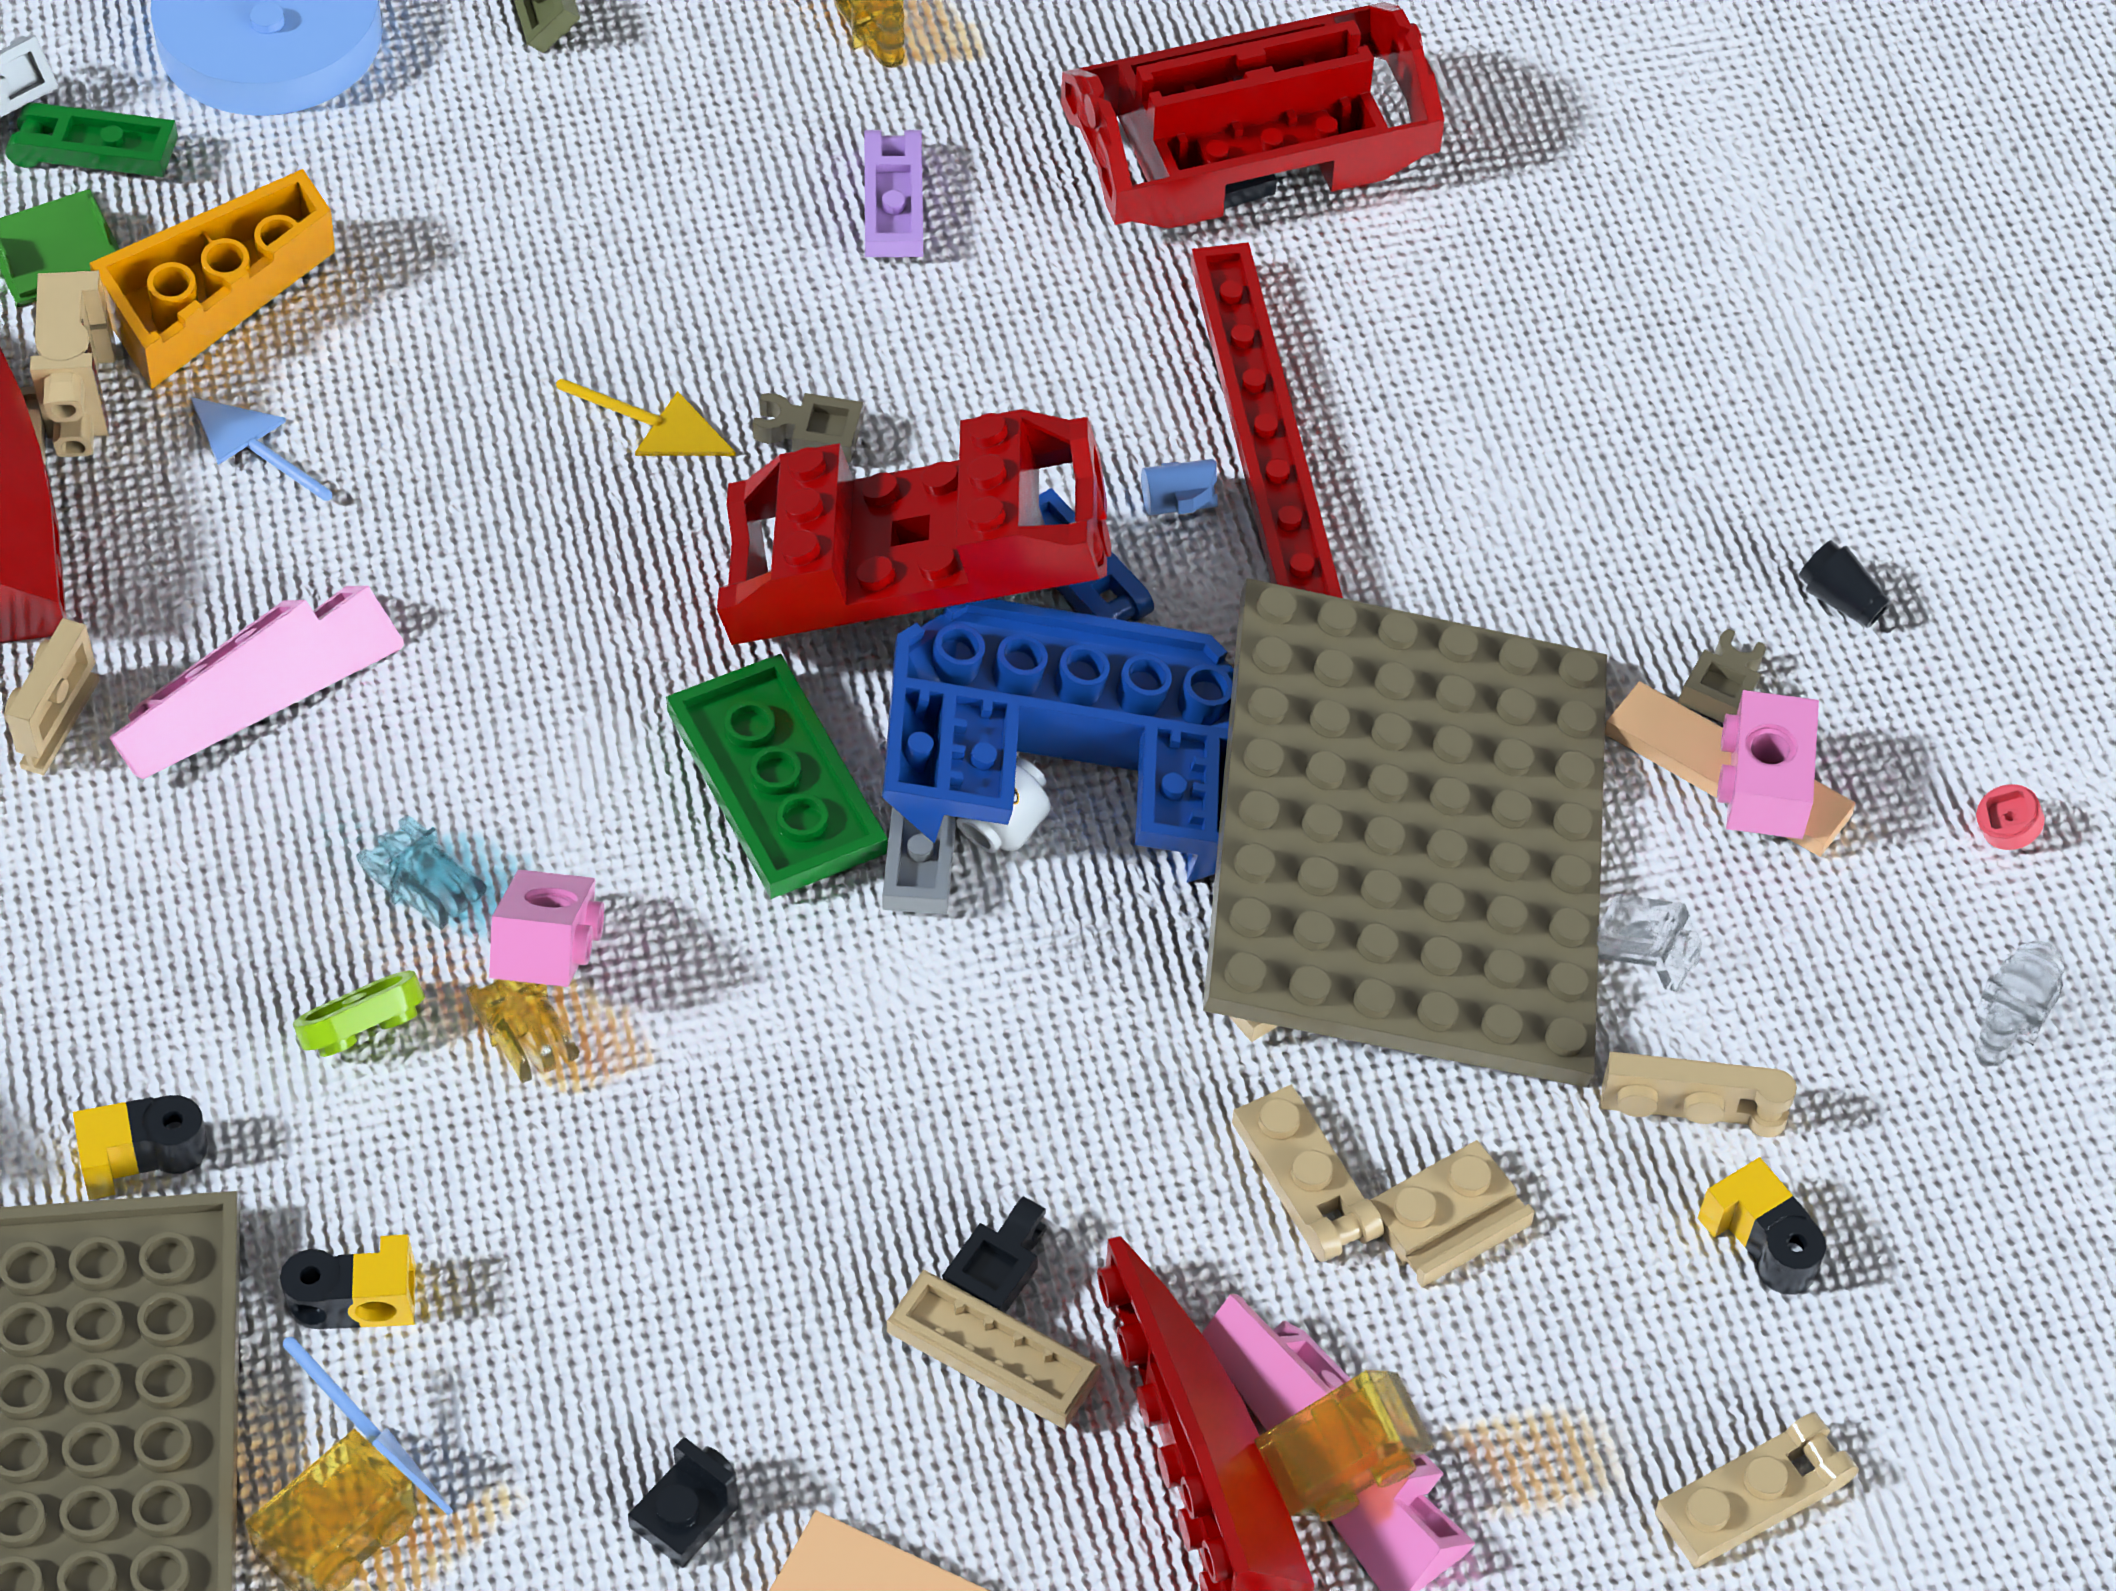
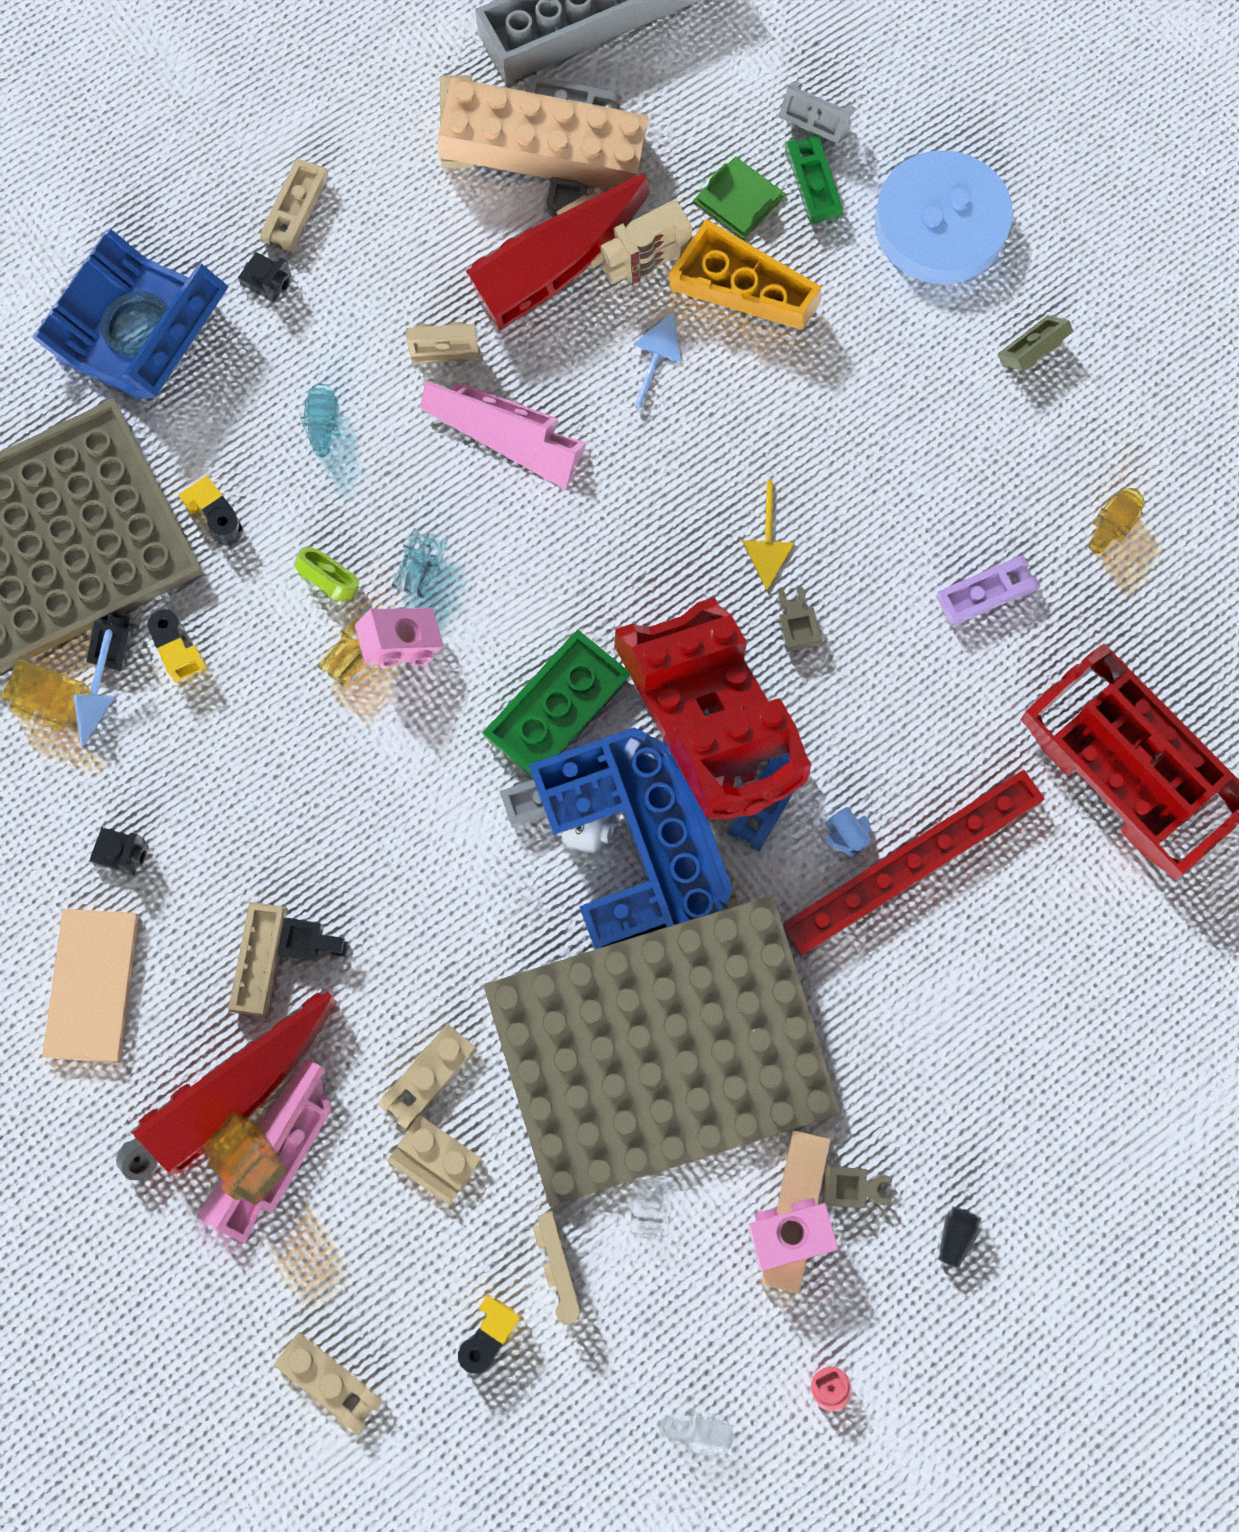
camera: 70 degrees right, 20 degrees up
(69, 922) = (321, 418): none -> clear light blue arm
(284, 1385) = (119, 644): none -> black bracket

